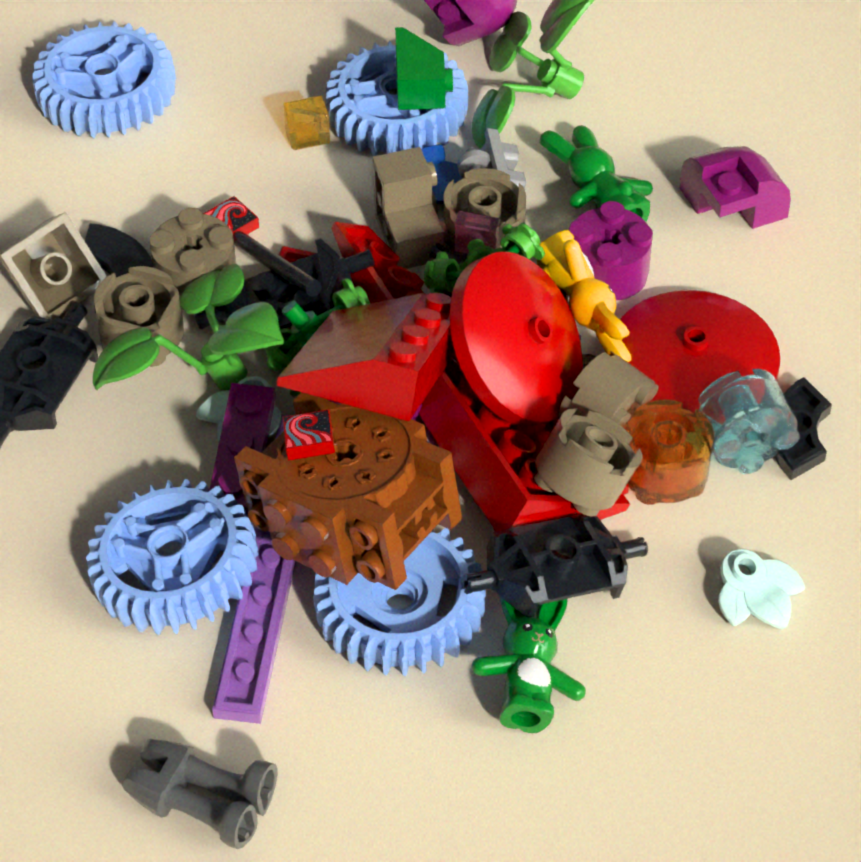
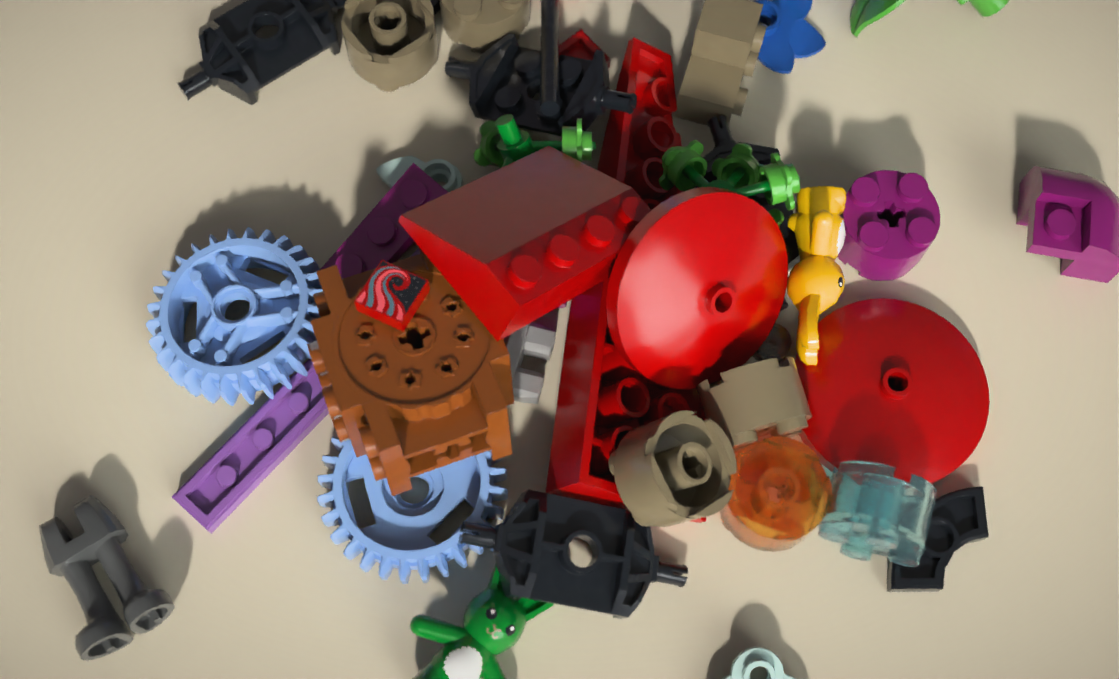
camera: 30 degrees right, 20 degrees up
(244, 331) = (430, 129): bright green plant -> none
(475, 226) = (759, 132): clear pink plate -> none
(487, 194) = (791, 107): dark tan brick -> none
(493, 156) = (834, 52): light grey hips -> none
(594, 173) = (938, 120): green animal -> none

